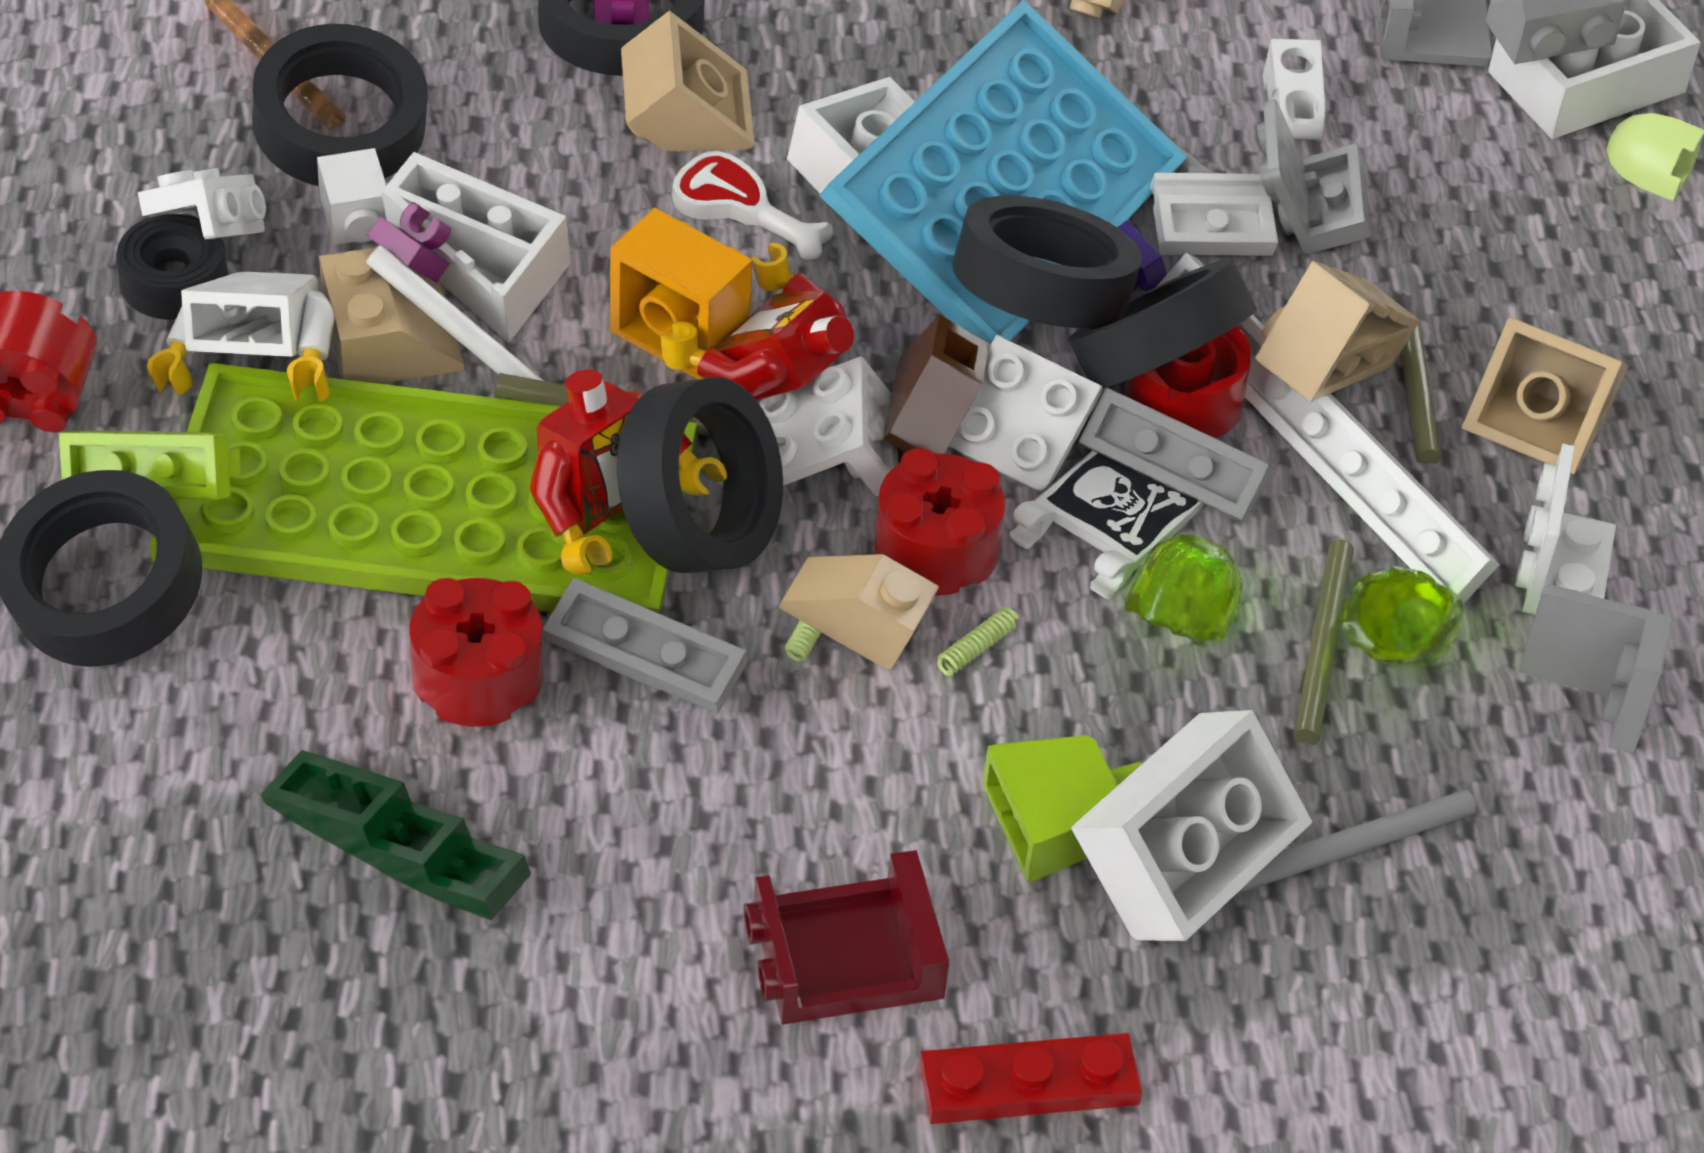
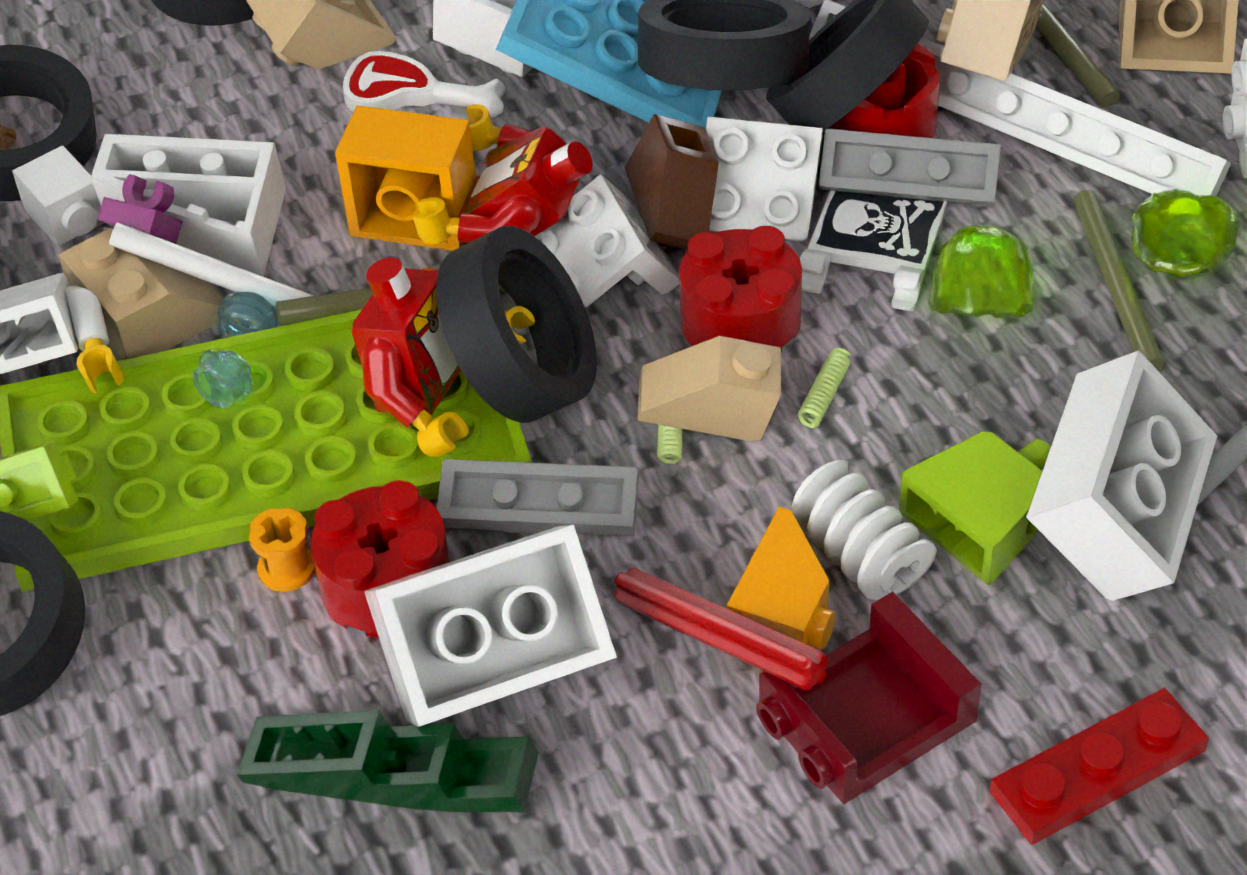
camera: 15 degrees left, 0 degrees up
(393, 598) = (281, 542): none -> light orange bush
(414, 428) = (222, 378): none -> clear light blue plate
(468, 374) = (245, 313): none -> clear light blue plate
(534, 742) = (490, 625): none -> white brick
(743, 824) = (721, 628): none -> red axle
(818, 818) = (786, 585): none -> light orange slope
(925, 786) = (860, 531): none -> white piece

